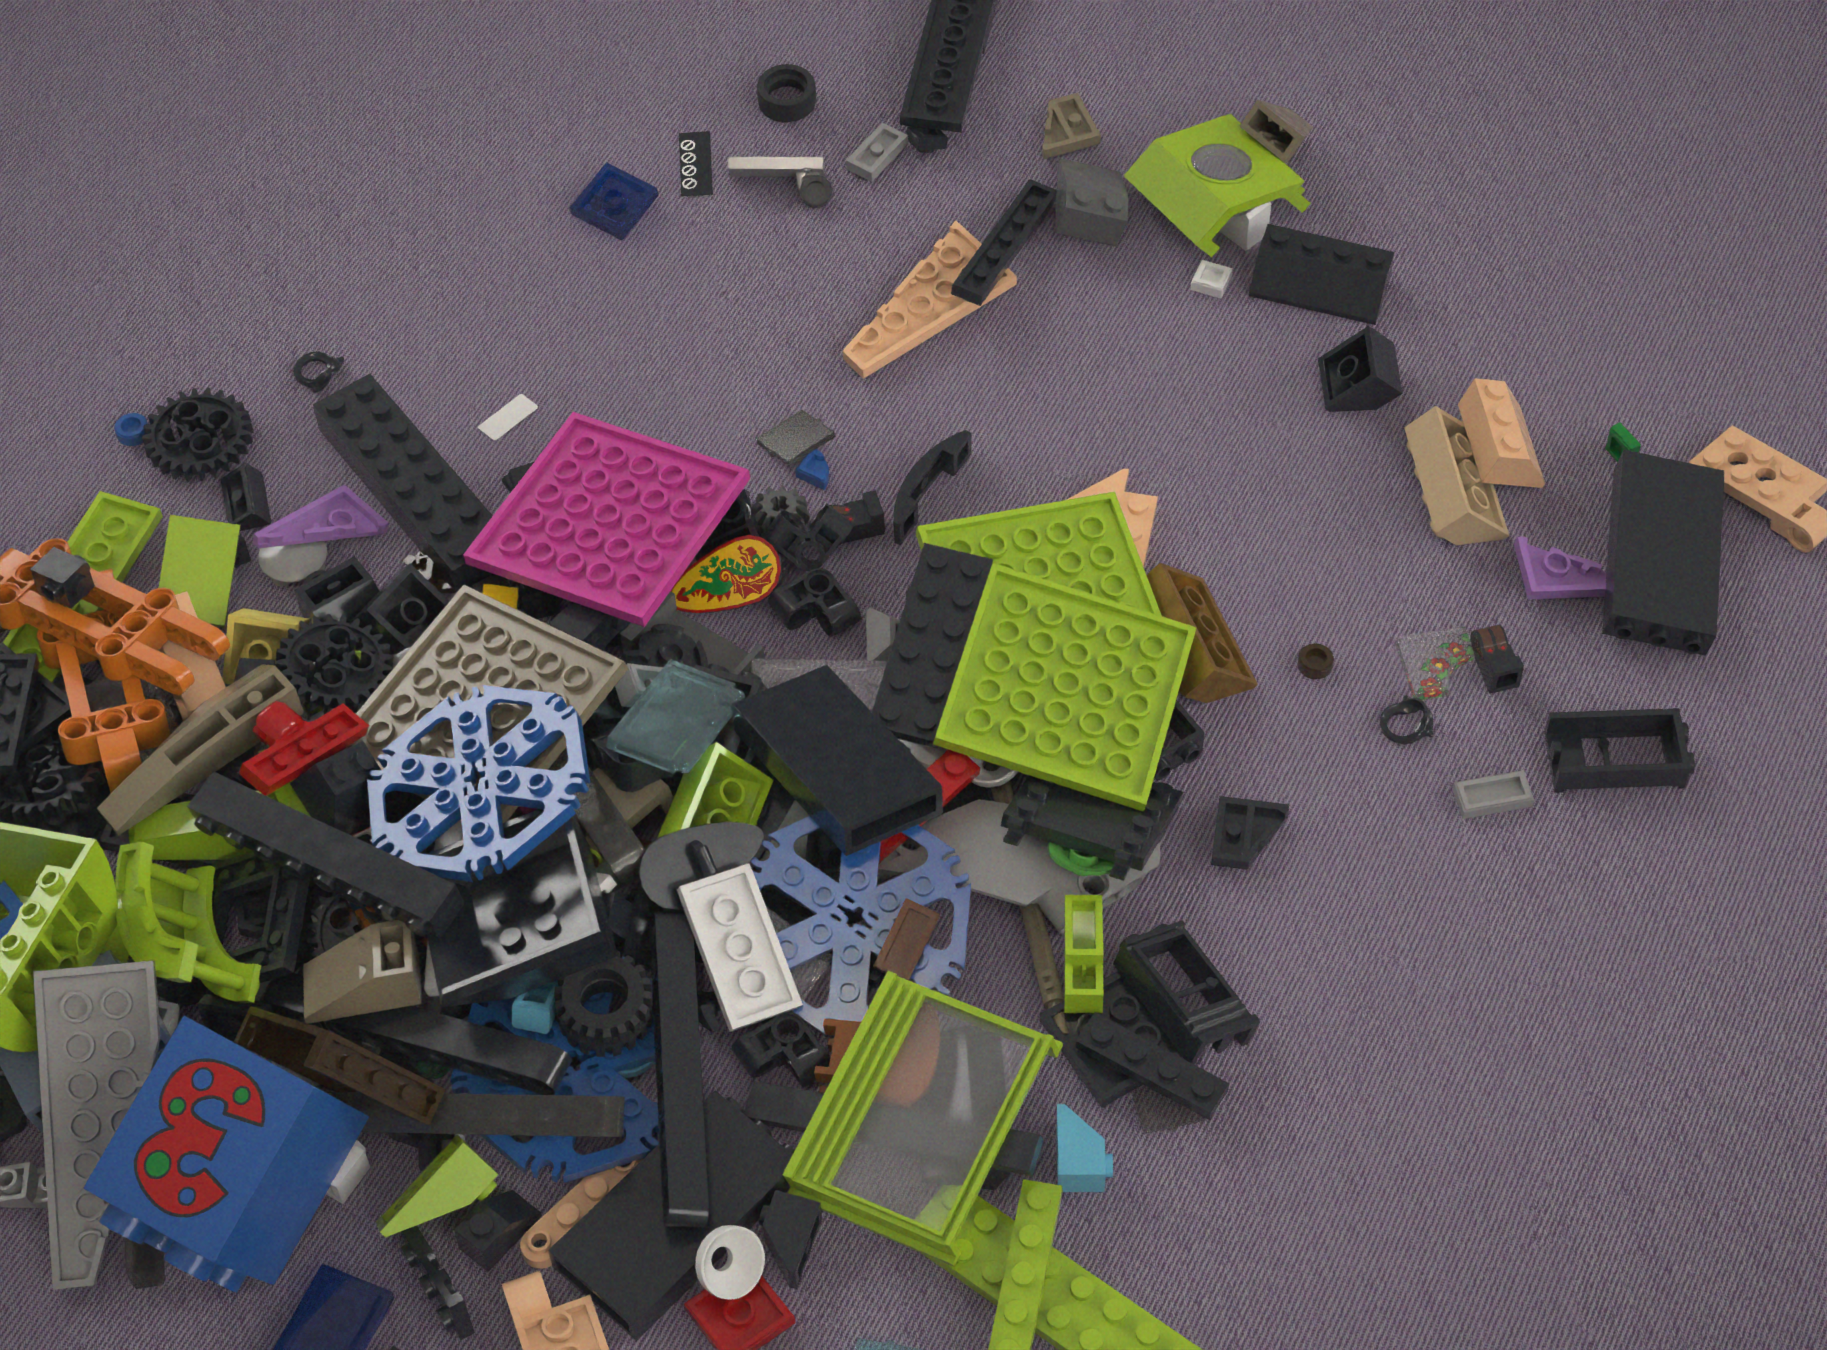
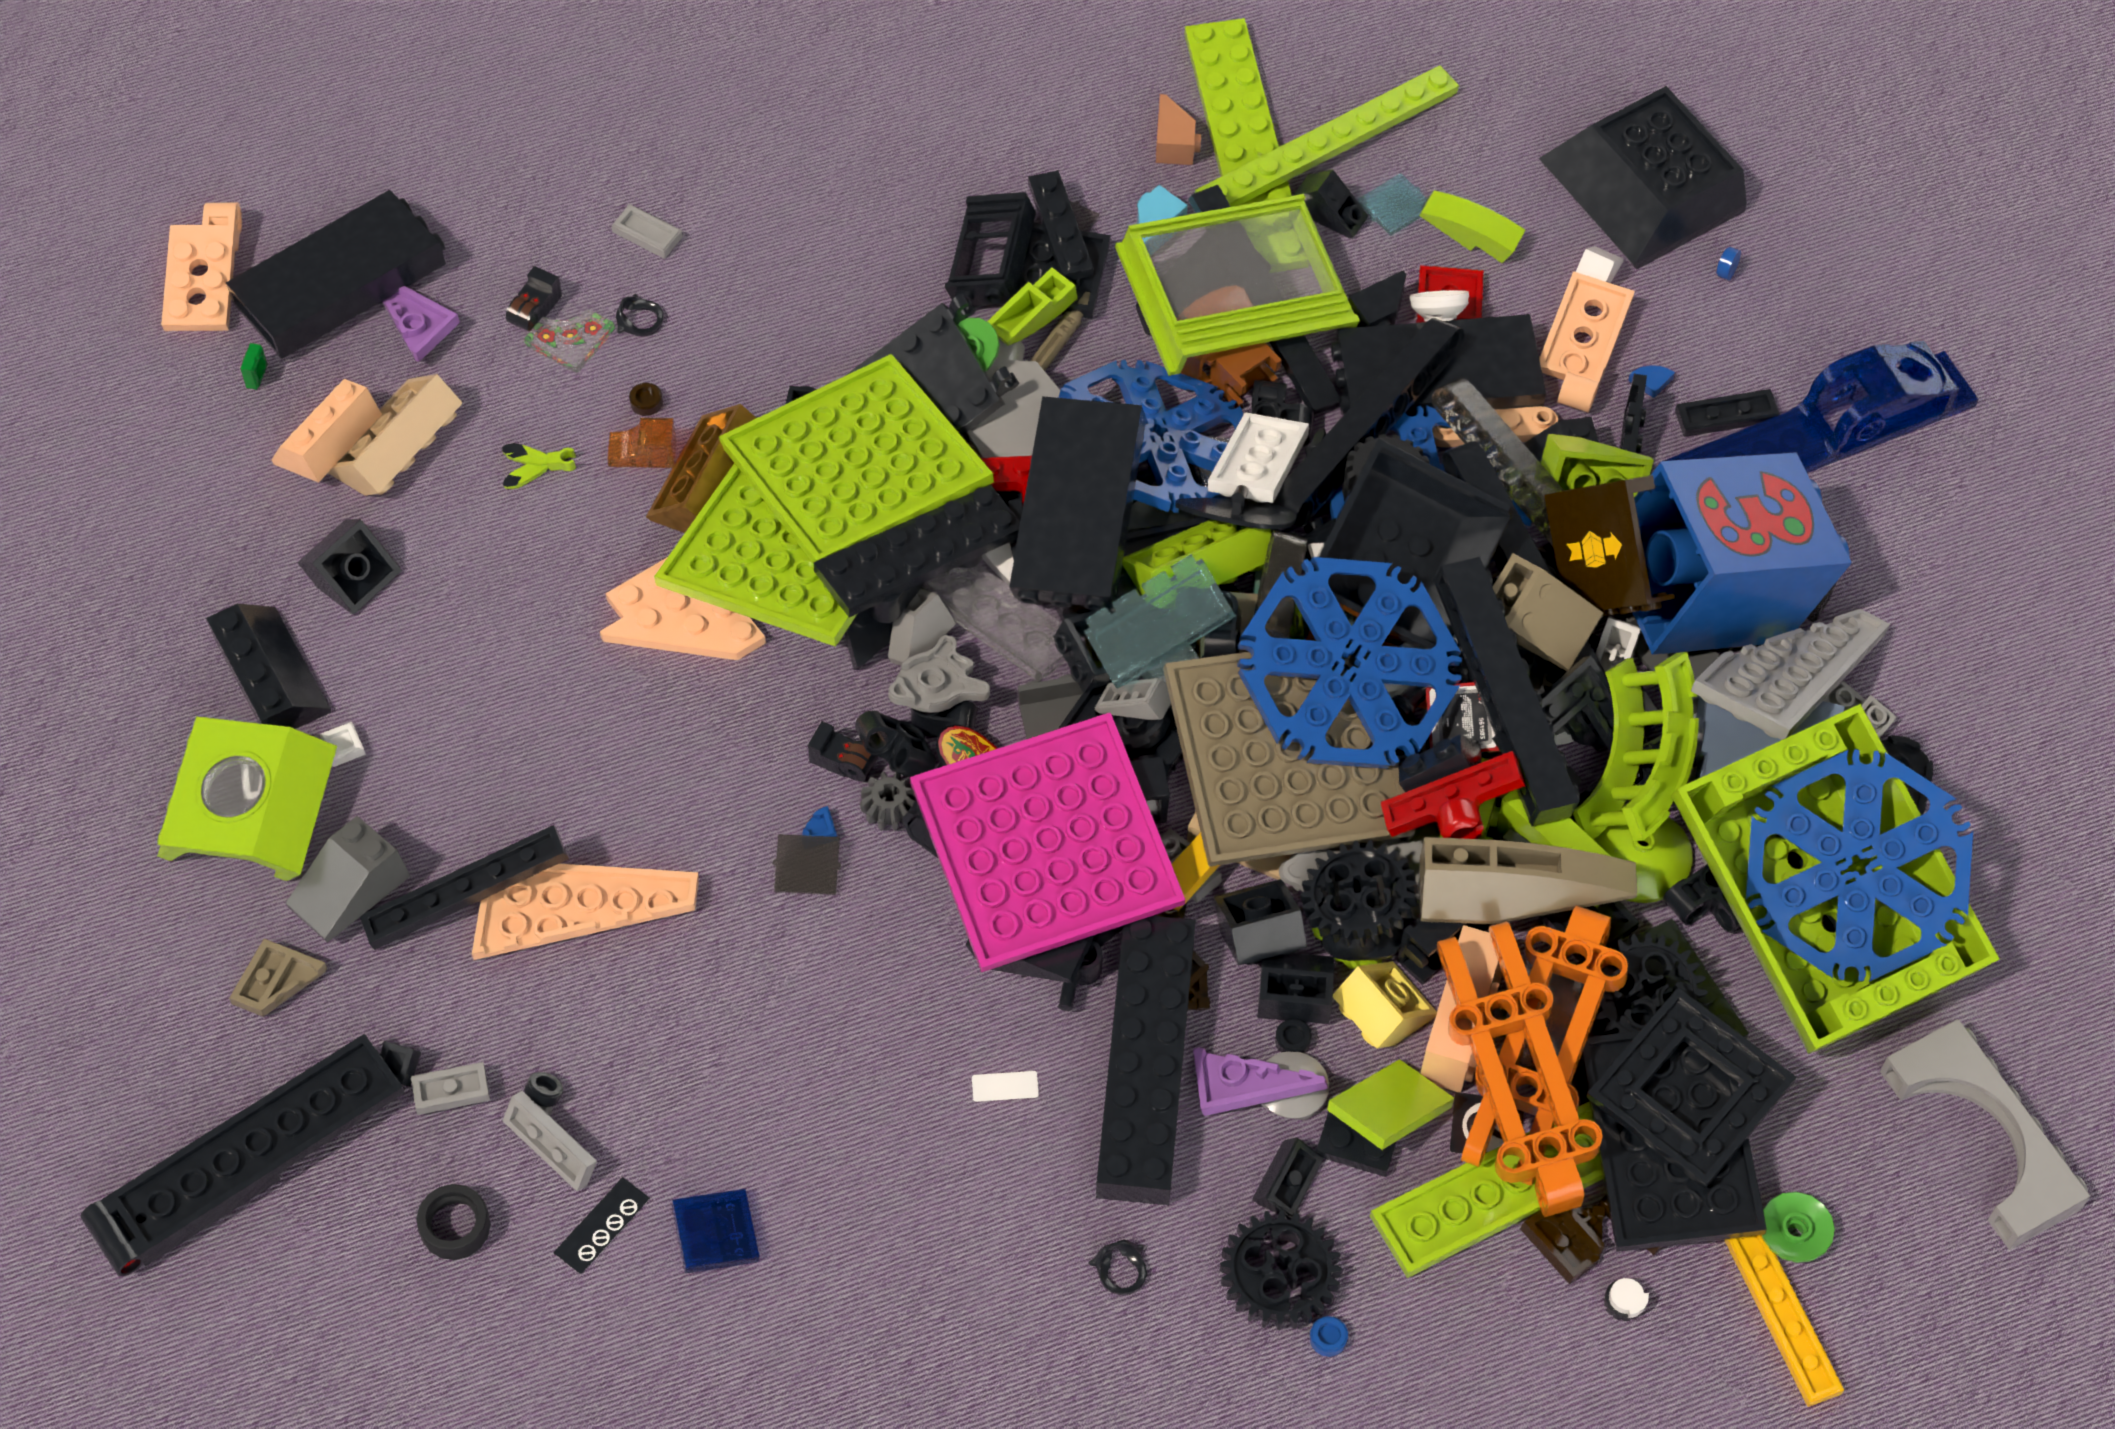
camera: 140 degrees left, 5 degrees up
(62, 577) = (1532, 1090): black brick -> none
(830, 600) = (937, 679): none -> light grey tile
(907, 939) = (1142, 386): reddish brown tile -> none
(938, 1307) = (1332, 203): none -> black slope
(945, 456) = (757, 744): black slope -> none
(1158, 1262) = (1175, 134): none -> nougat slope
(1244, 830) = (832, 325): black wing -> none
(1264, 618) = (646, 445): none -> clear orange arch
(1276, 128) = (144, 789): dark tan slope -> none
(1334, 551) = (536, 463): none -> lime piece
(1567, 758) = (570, 218): black door -> none

